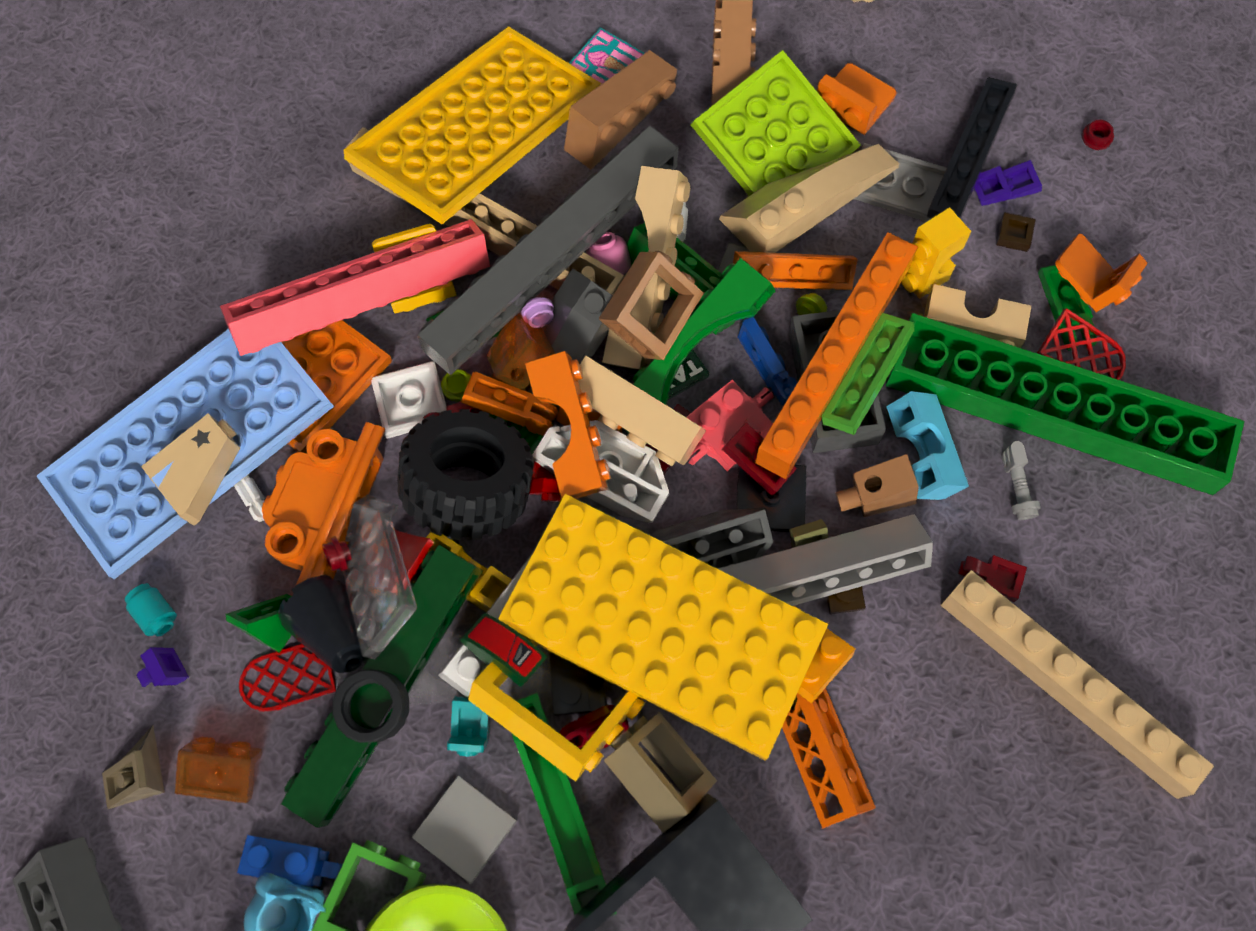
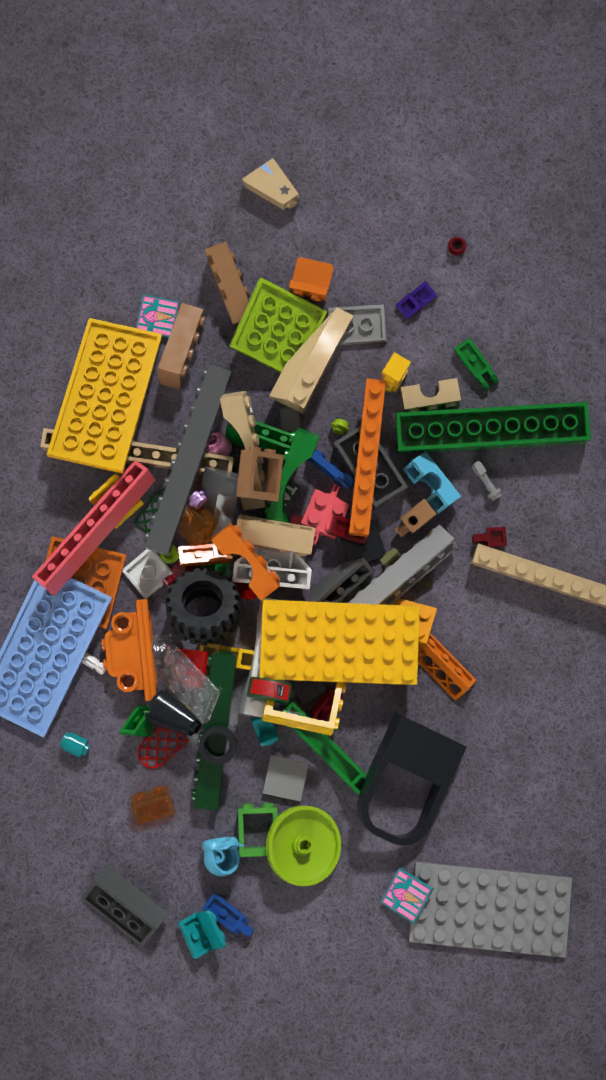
camera: 25 degrees left, 15 degrees up
(135, 775) = (111, 824): dark tan slope -> none
(161, 668) = (98, 770): dark purple tile -> none
(194, 466) = (60, 664): tan slope -> none
(291, 861) = (207, 830): blue hinge -> none
(336, 554) = (159, 677): dark red plate -> none
(647, 782) = (362, 720): dark tan window -> none
(803, 270) = (324, 410): orange tile -> none
(868, 373) = (387, 460): bright green plate -> none
(973, 147) = (390, 288): black plate -> none
(1015, 232) = (432, 330): dark brown plate -> none
(1066, 313) = (479, 395): red window -> none
(1094, 277) = (484, 342): orange bracket -> none

